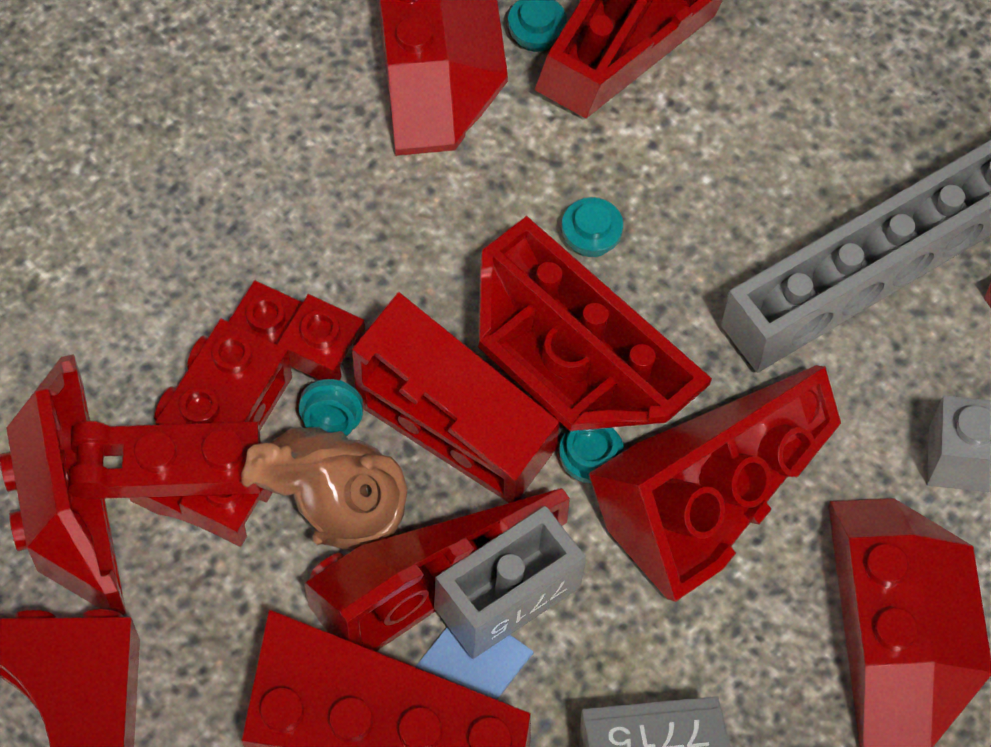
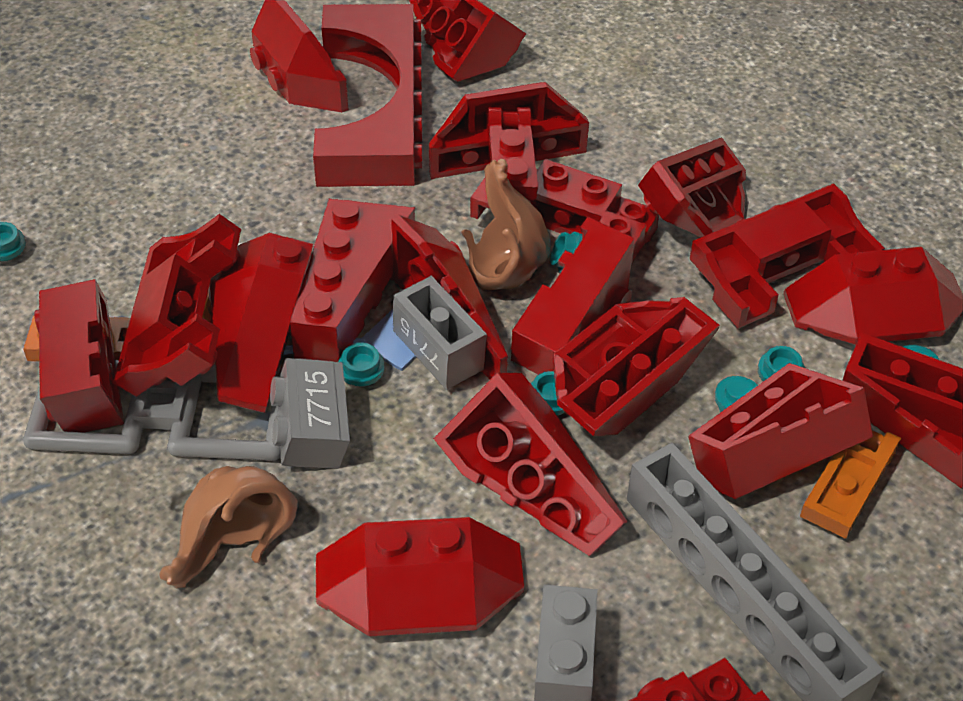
camera: 90 degrees right, 15 degrees down
(227, 224) = (697, 188): none -> red wedge
(337, 142) = (776, 244): none -> red bracket
(544, 171) = (776, 359): none -> teal plate
(546, 698) = (362, 364): none -> teal plate
(678, 176) = (780, 430): none -> red wedge
(718, 119) = (849, 483): none -> orange plate

